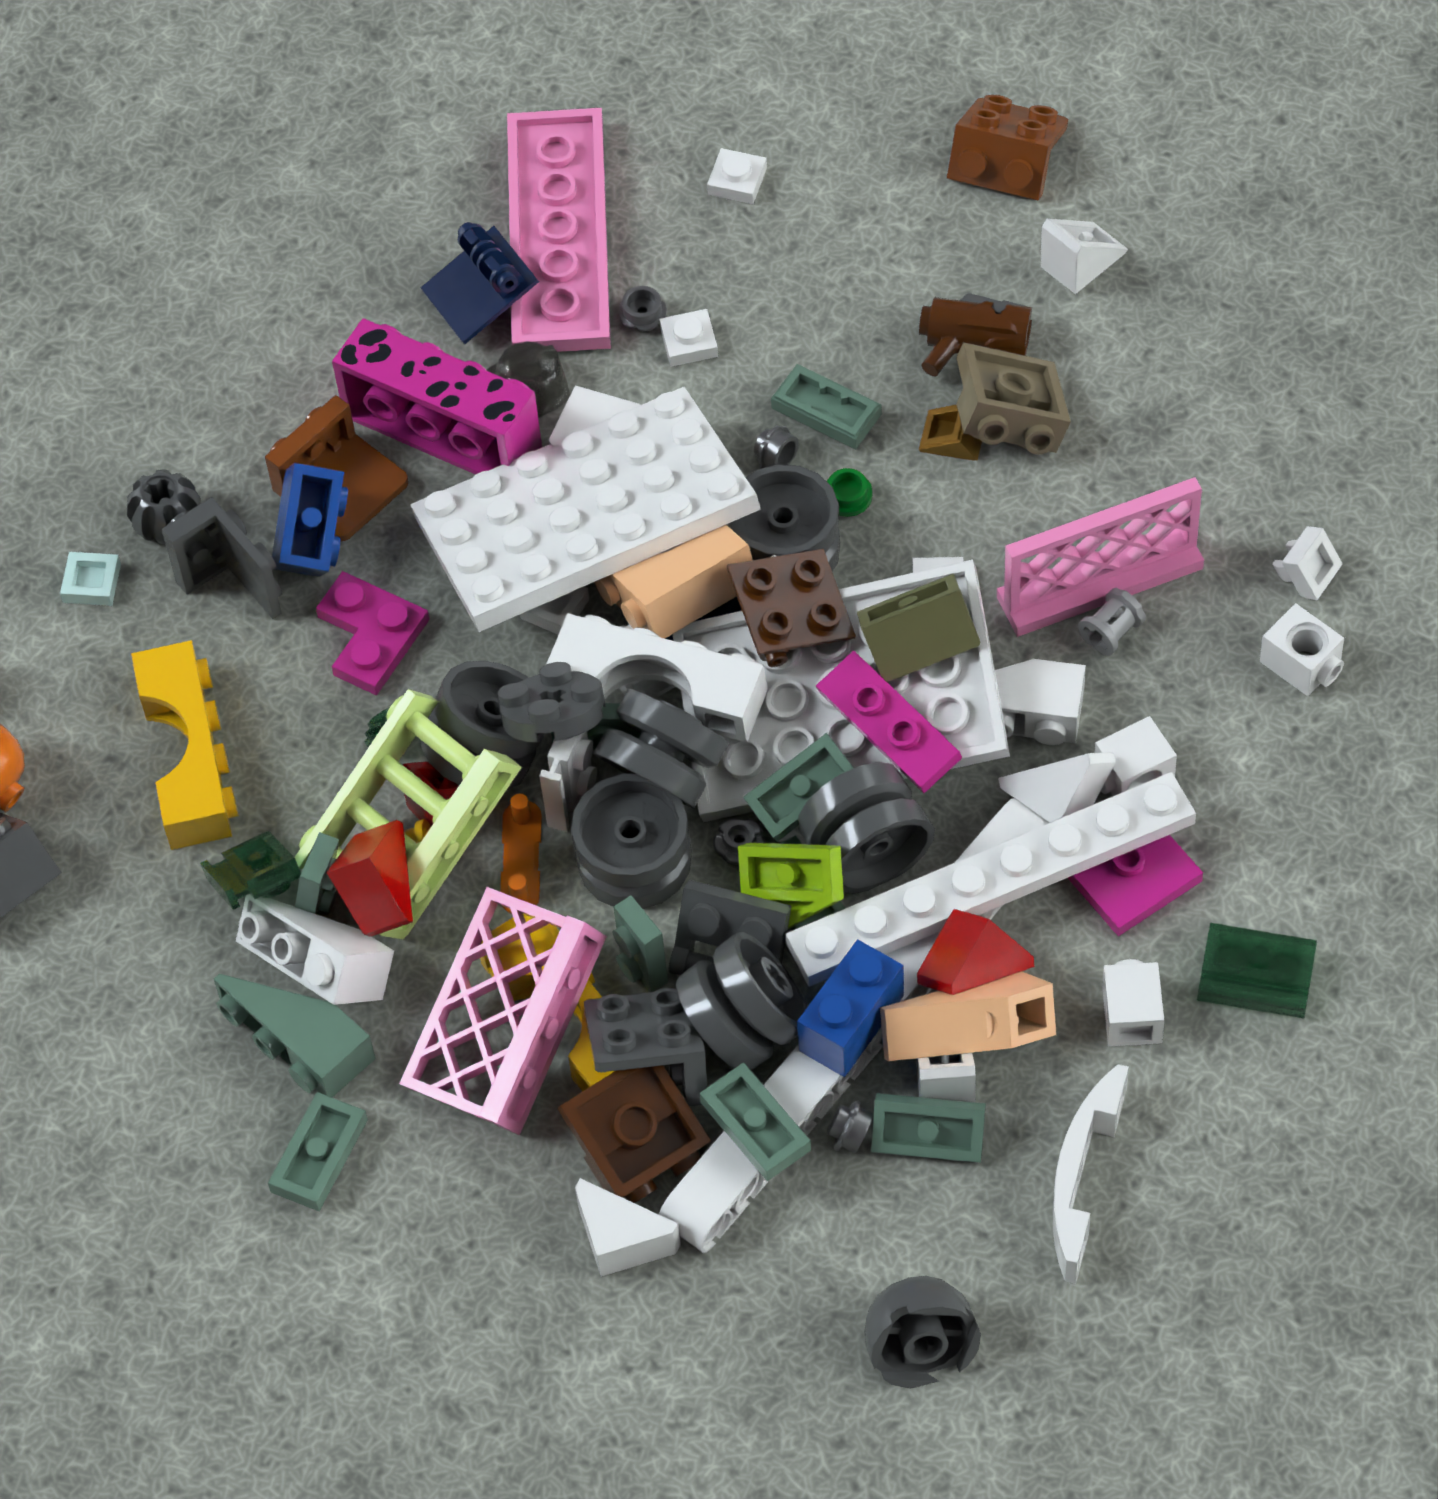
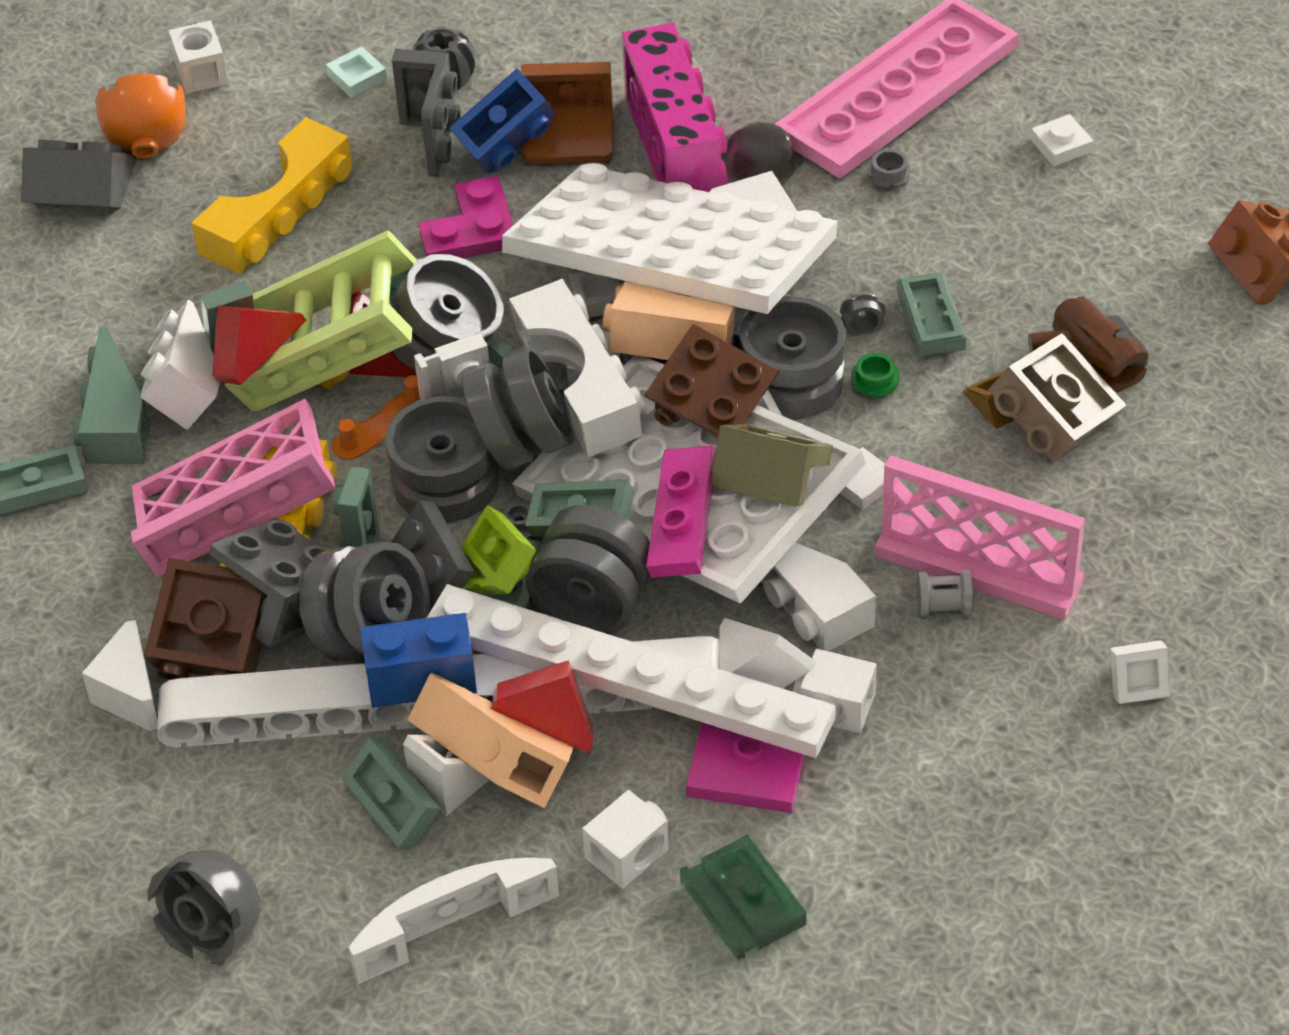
camera: 45 degrees right, 10 degrees down
(253, 868) = (191, 284): clear green plate -> none
(478, 281) = (802, 76): dark blue hinge -> none
(552, 702) = (474, 318): dark grey plate -> none
(688, 337) = (898, 209): white plate -> none
(755, 1121) = (272, 677): sand green plate -> none
(849, 1126) = (342, 746): flat silver plate -> none
(1077, 251) = (1239, 349): white slope -> none
(1297, 633) = (1055, 721): white brick -> none

